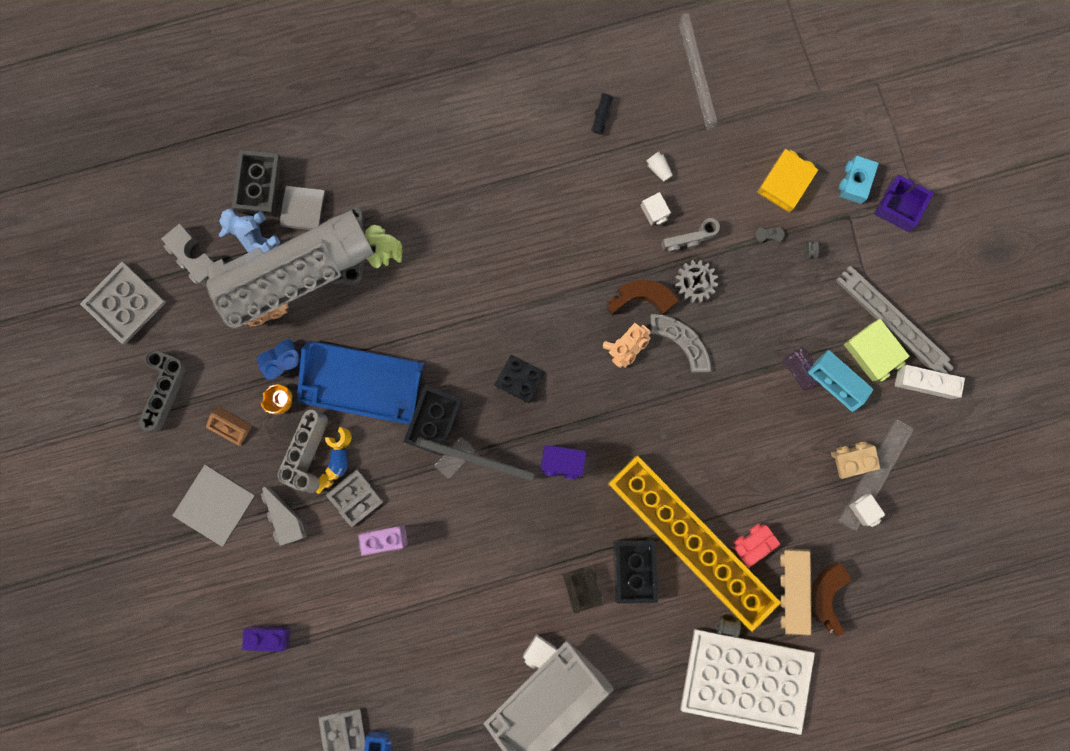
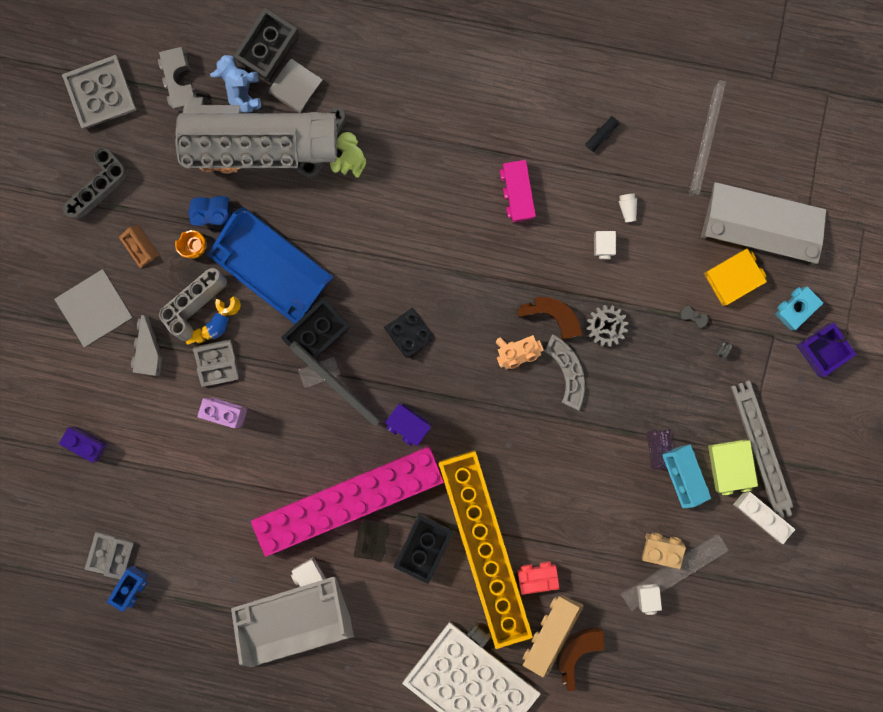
camera: 35 degrees right, 5 degrees up
(541, 564) = (347, 501): none -> dark pink brick
(553, 201) = (517, 191): none -> dark pink brick
(692, 239) = (621, 286): light grey plate -> none
(788, 119) = (765, 223): none -> light grey slope

